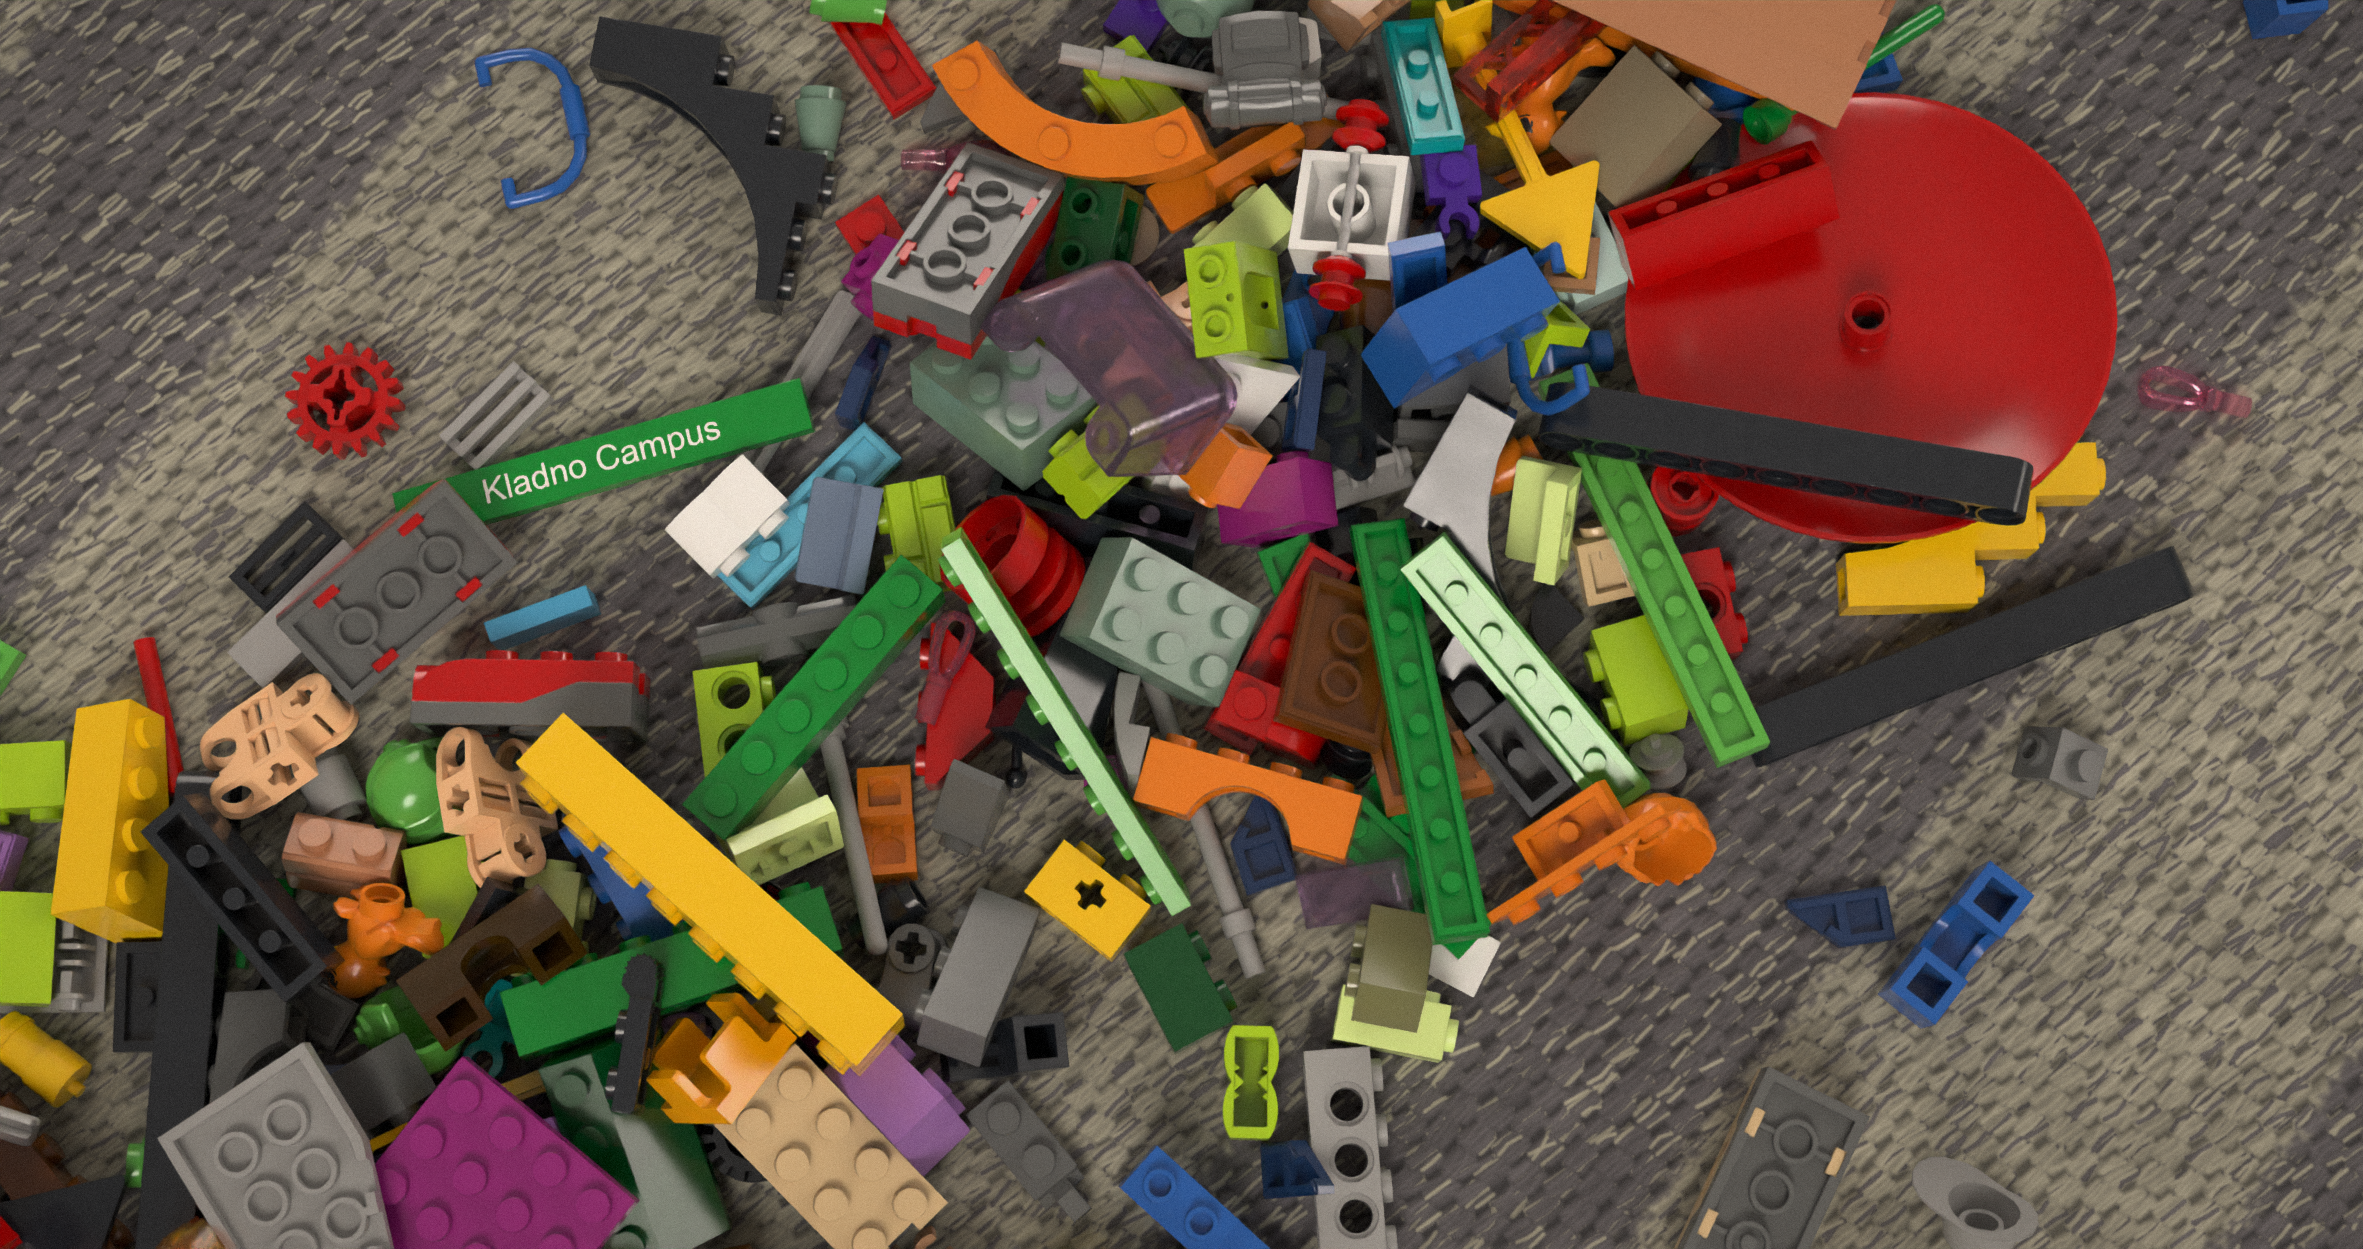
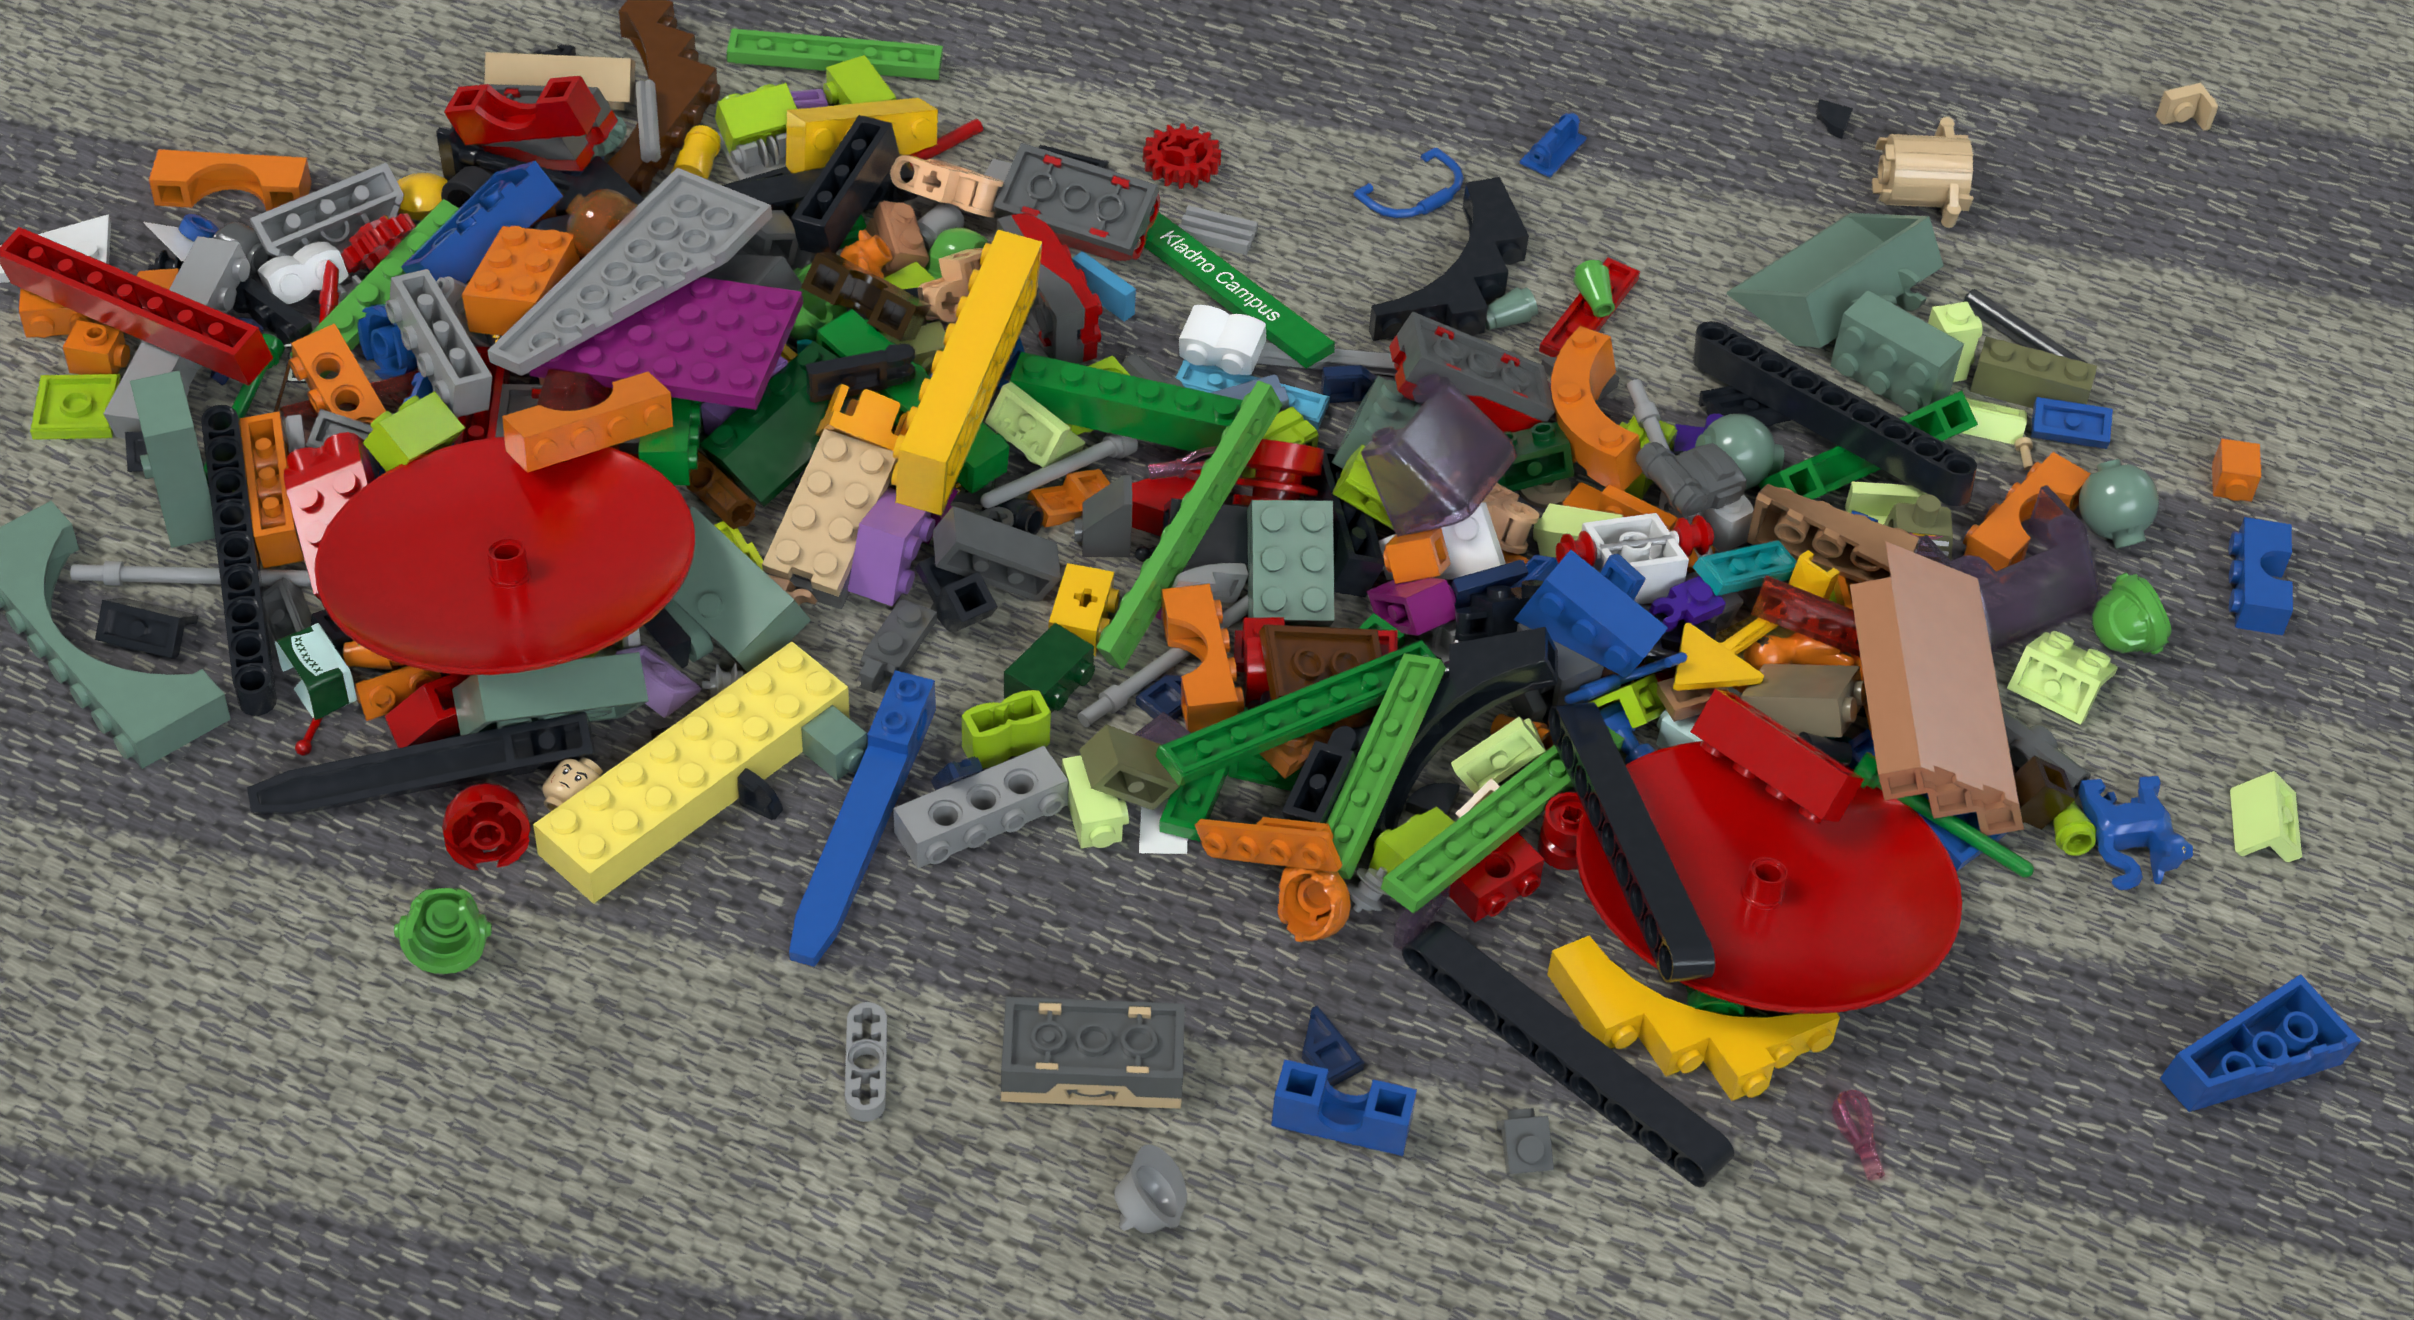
camera: 60 degrees right, 30 degrees down
(1228, 299) = (1501, 488): lime panel -> none

